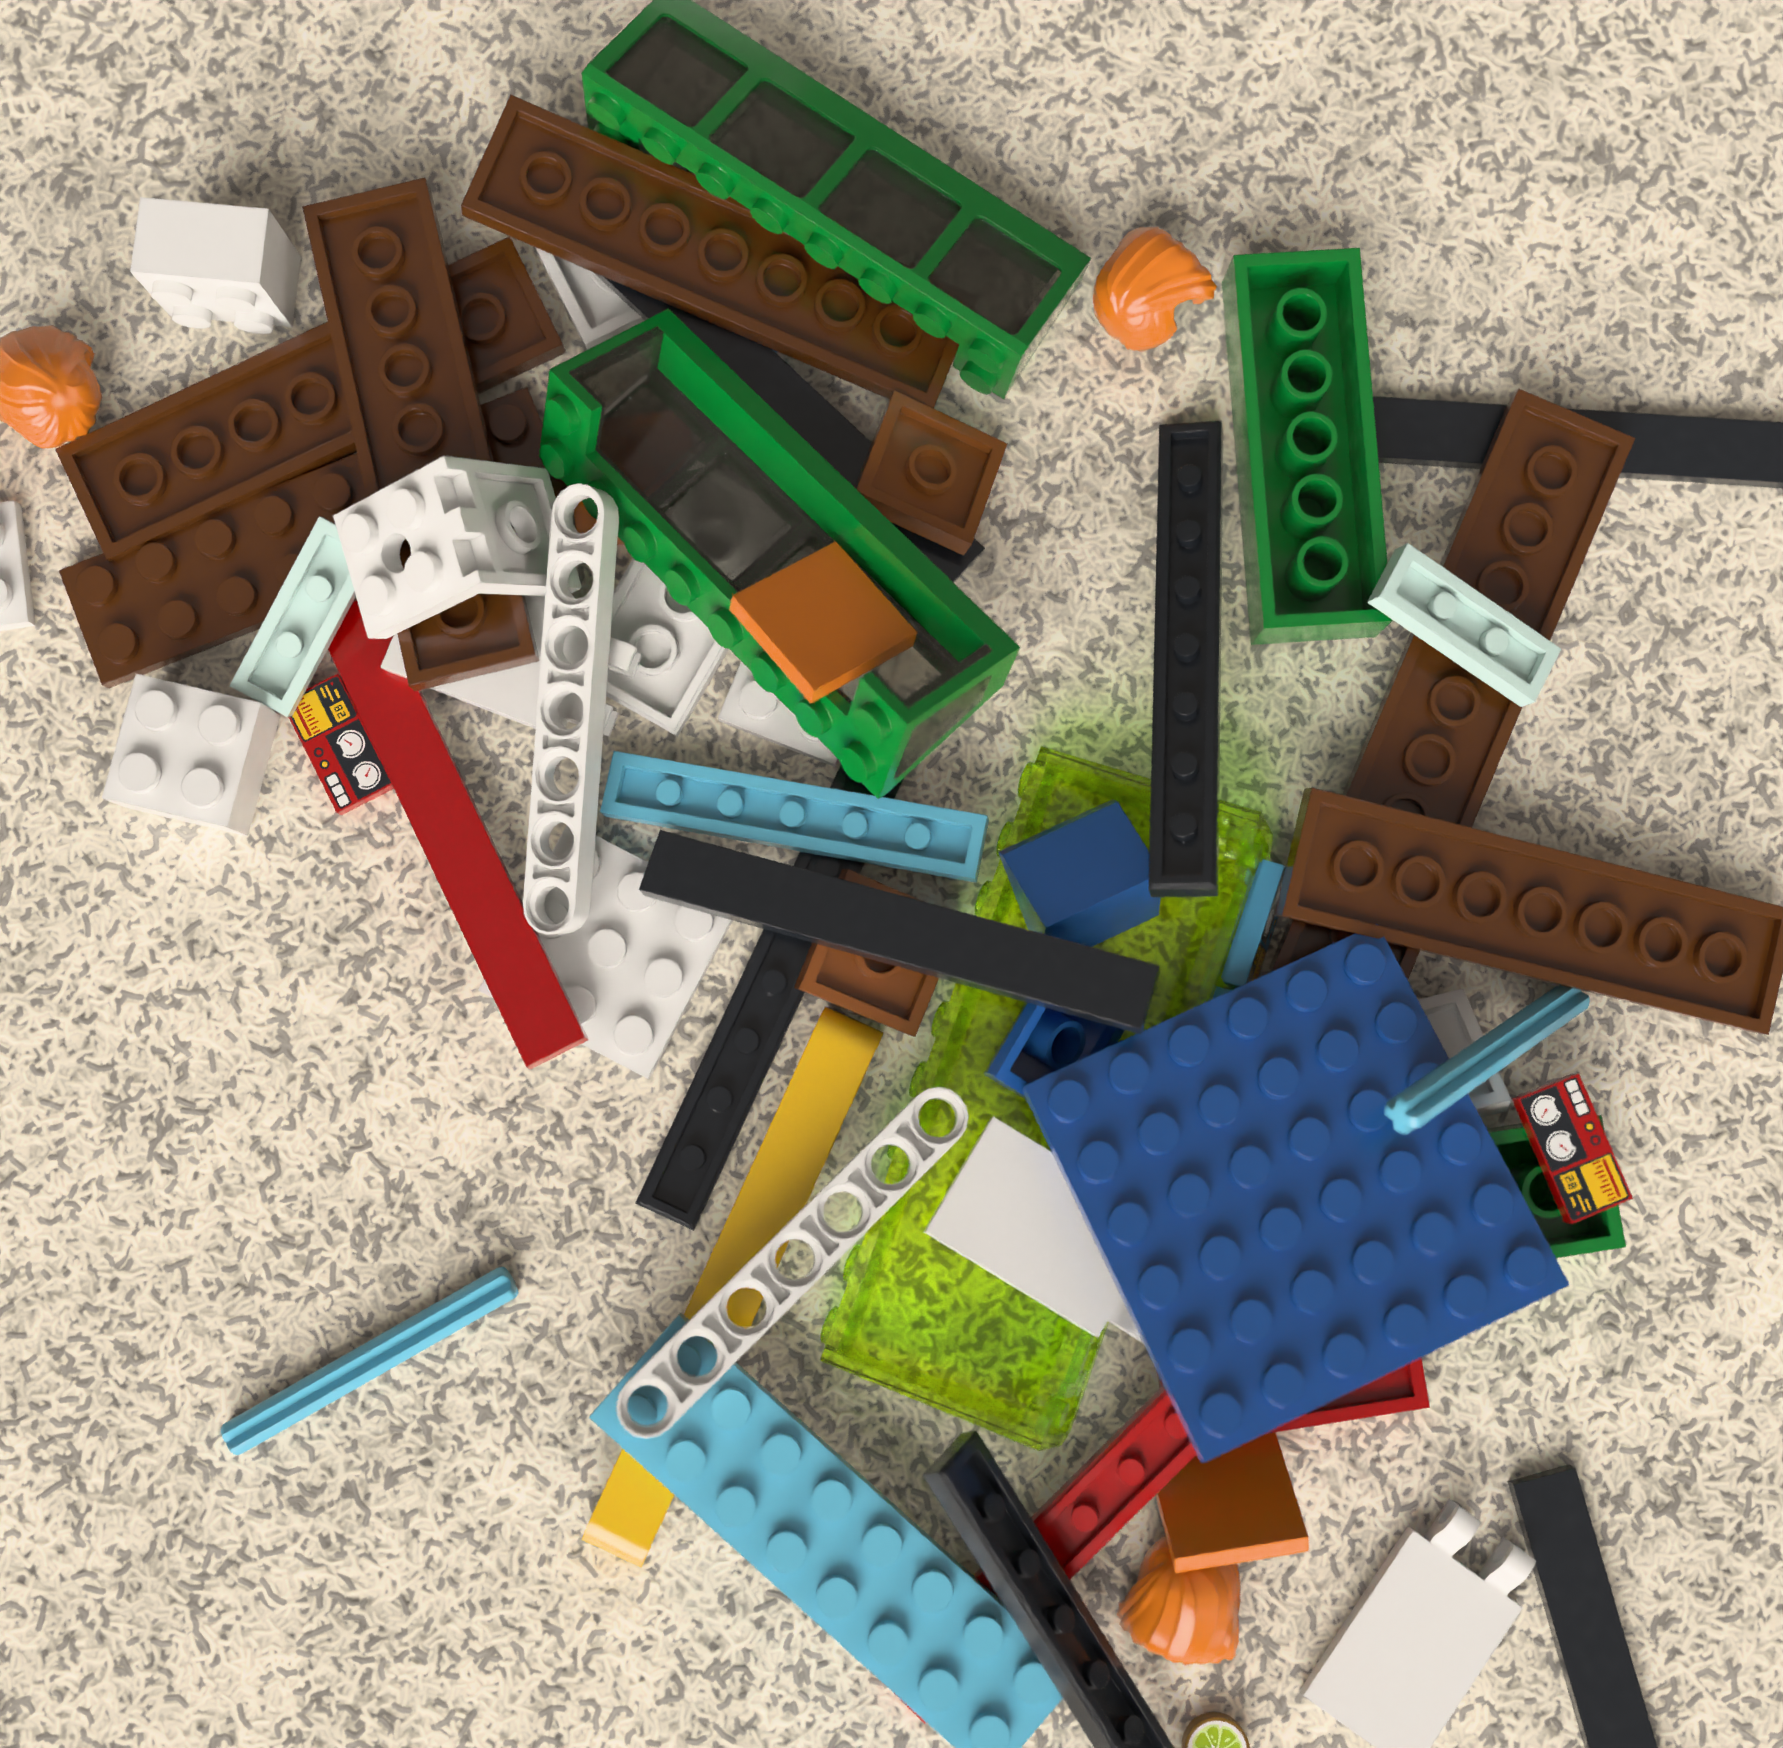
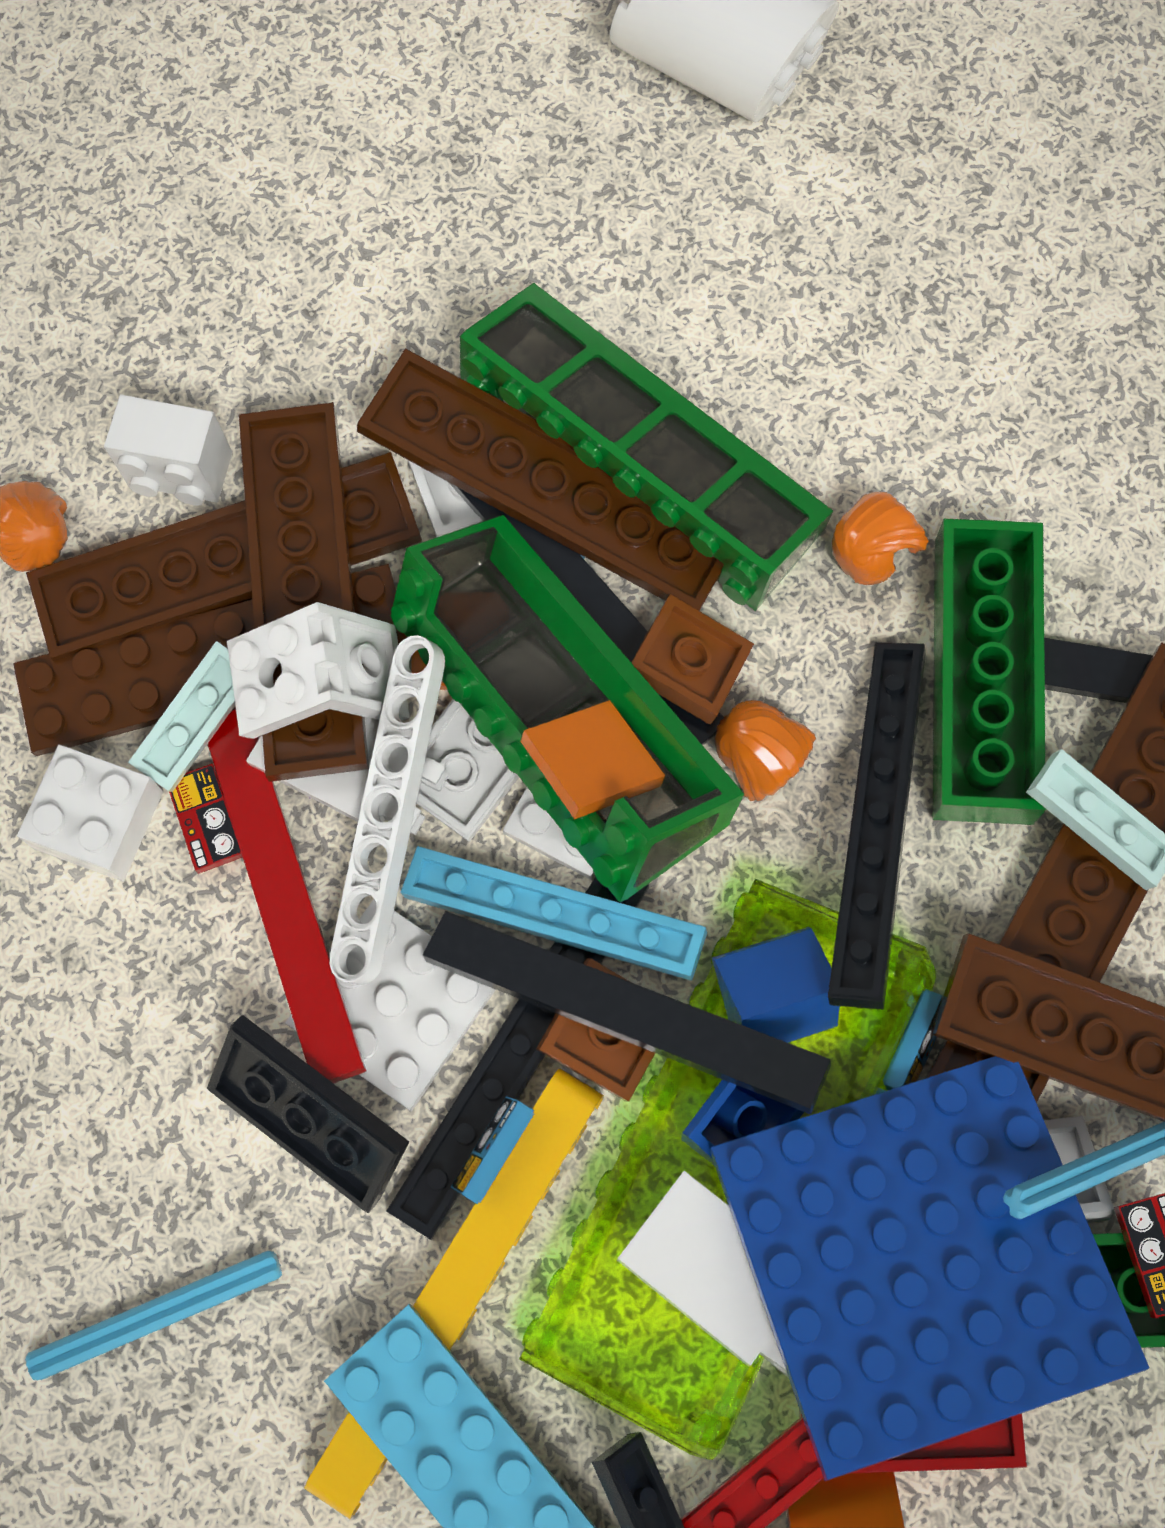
camera: 15 degrees right, 10 degrees down
(520, 1100) = (306, 1114): none -> black tile
(756, 1117) = (492, 1149): none -> dark azure tile
(782, 1292) = (481, 1278): white beam -> none
(1032, 577) = (762, 747): none -> orange hair

